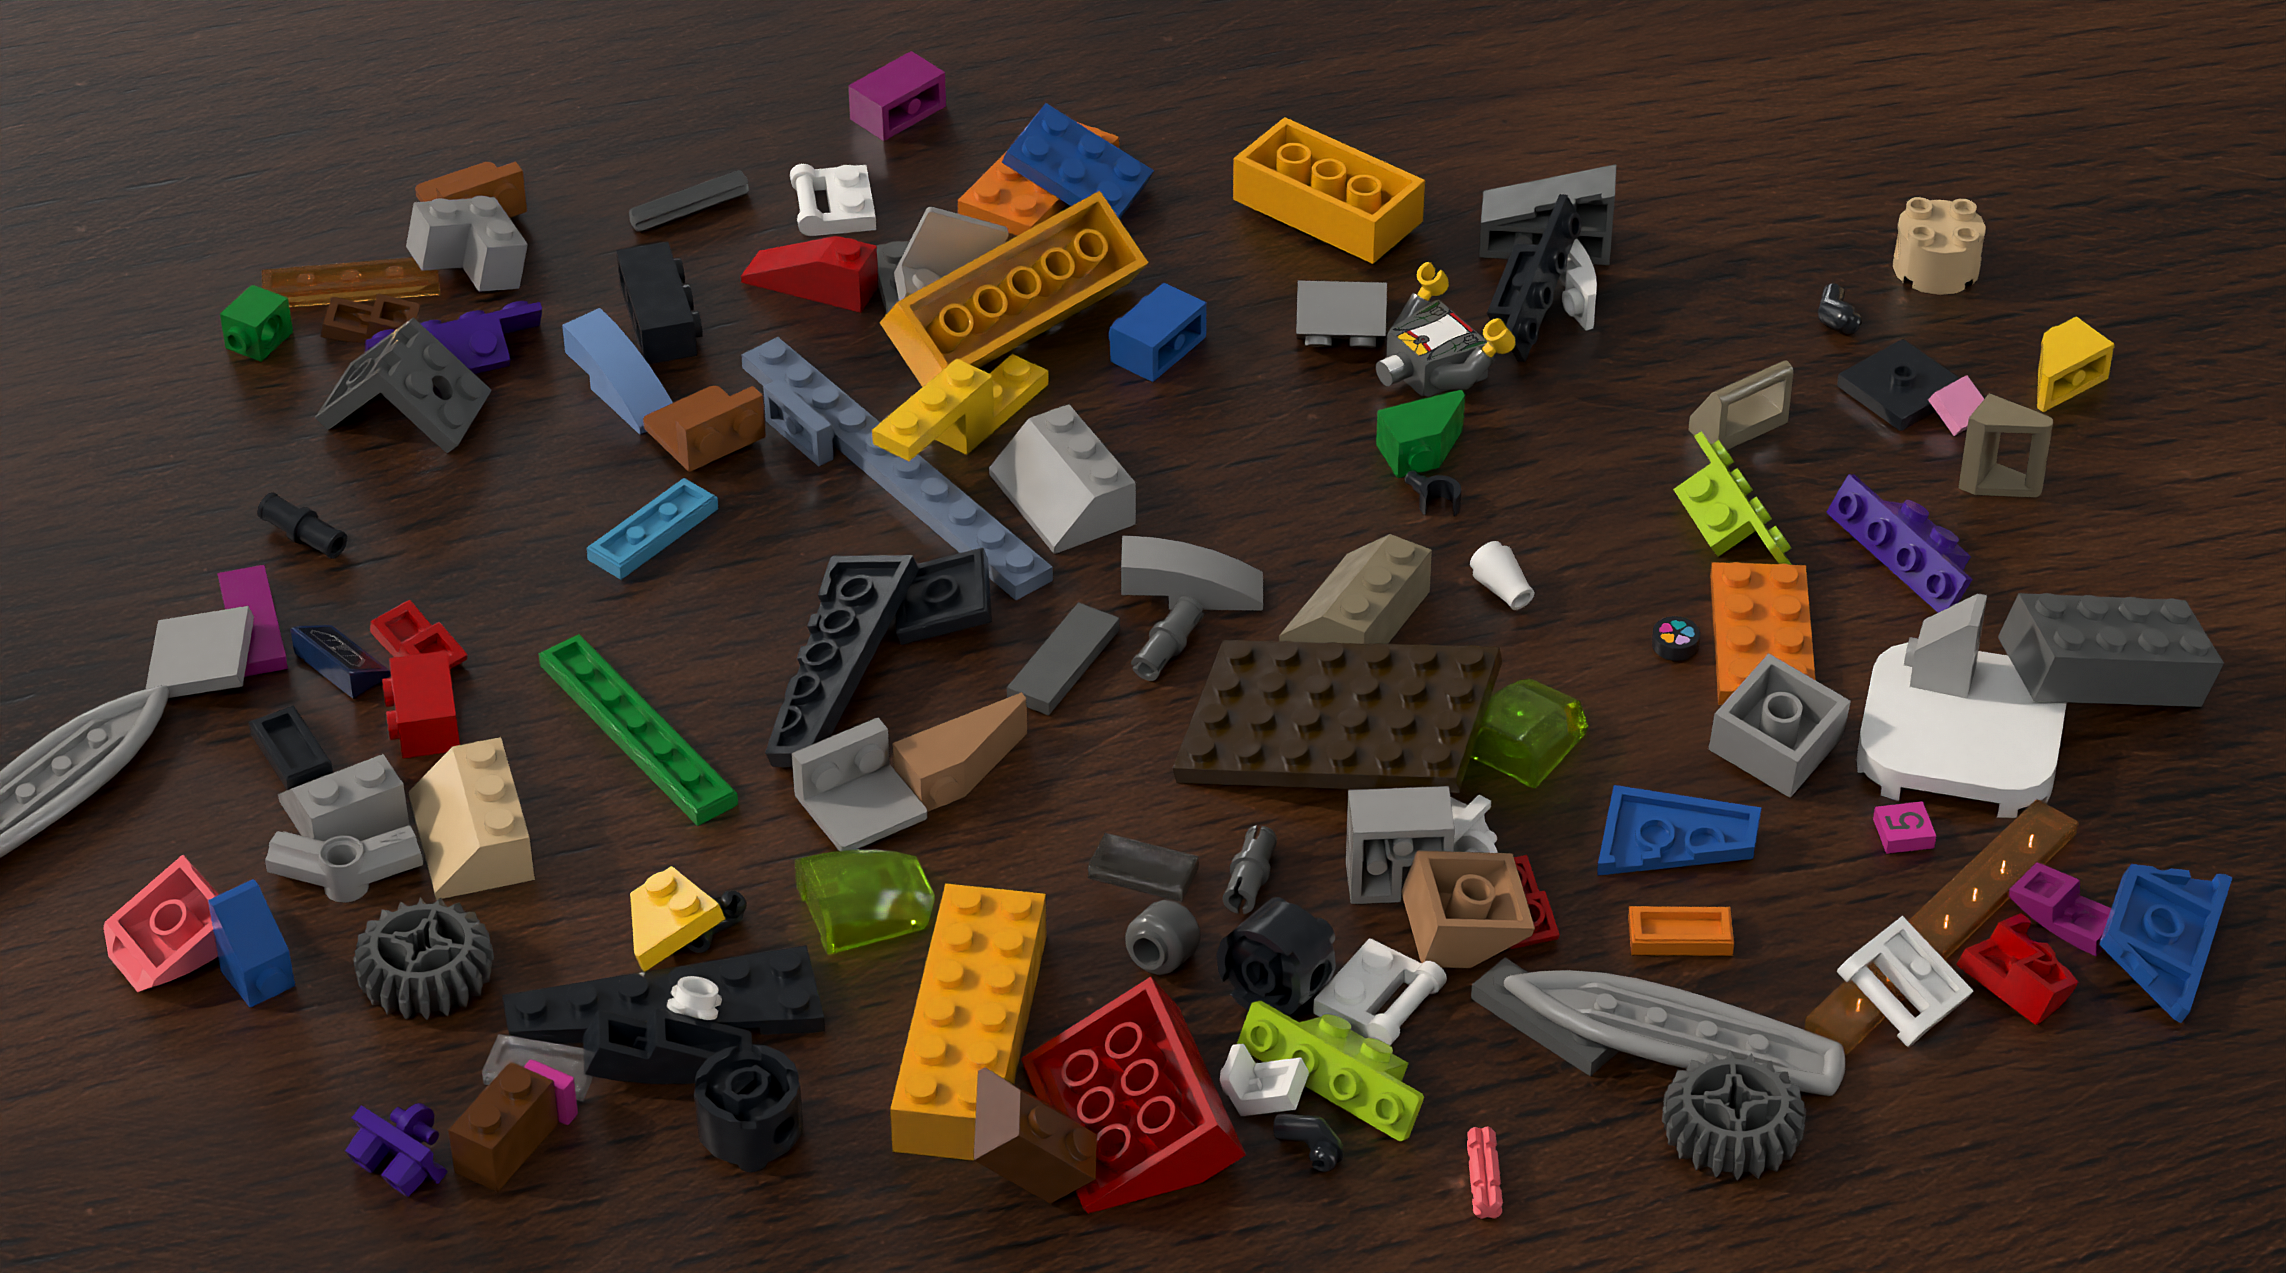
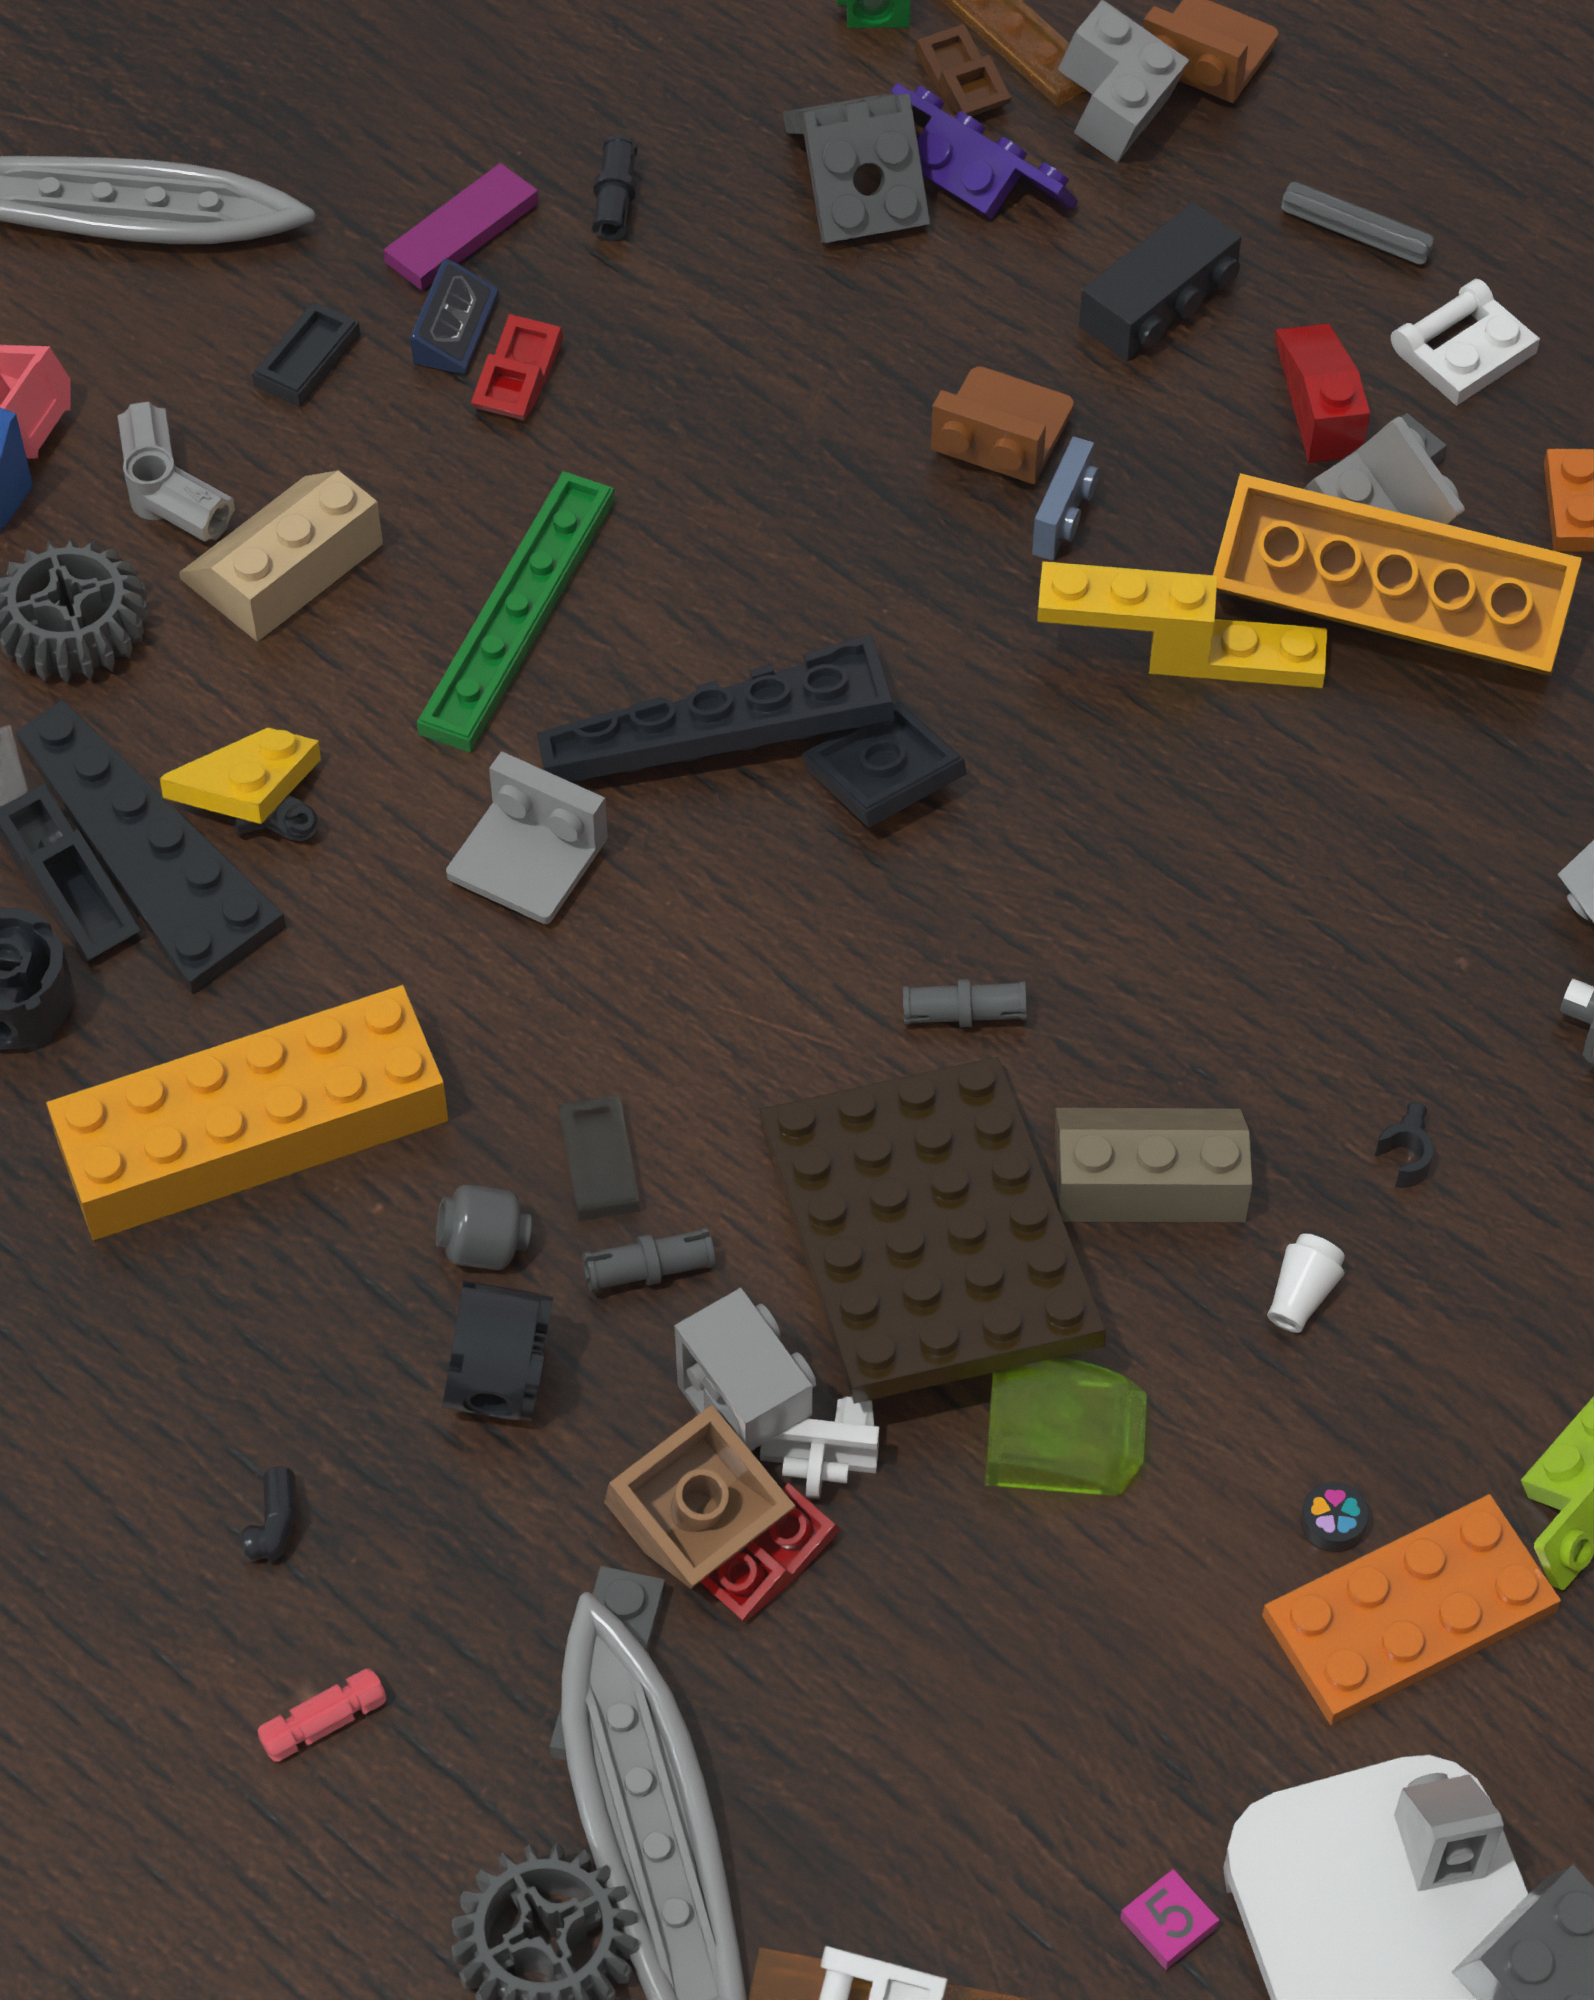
camera: 60 degrees right, 15 degrees up
(201, 651) = (377, 212): light grey tile -> none
(349, 802) = (243, 435): light grey slope -> none
(423, 704) = (420, 419): red brick -> none
(614, 367) = (1028, 301): medium blue slope -> none
(652, 528) = (823, 465): dark azure tile -> none
(695, 998) = (128, 844): white plate -> none
(864, 896) = (384, 920): clear neon green slope -> none
(911, 482) = (1059, 652): sand blue plate -> none
(958, 754) = (645, 902): medium nougat slope -> none
(1030, 1140) = (89, 1243): reddish brown slope -> none
(1064, 657) = (874, 923): dark grey tile -> none
(1065, 480) = (1149, 782): light grey slope -> none
(1144, 1094) = (225, 1322): red slope -> none
(1157, 332) = (1466, 742): blue brick -> none
(1190, 571) = (1075, 972): light grey slope -> none
(1264, 1085) = (318, 1425): white bracket -> none
(1341, 1064) = (403, 1490): lime bracket -> none
(1369, 982) = (541, 1460): white plate -> none
(1420, 432) = (1491, 1083): green slope -> none
(1674, 831) = (985, 1662): blue wing -> none
(1681, 931) = (835, 1747): orange tile -> none
(1779, 725) = (1221, 1695): light grey brick -> none

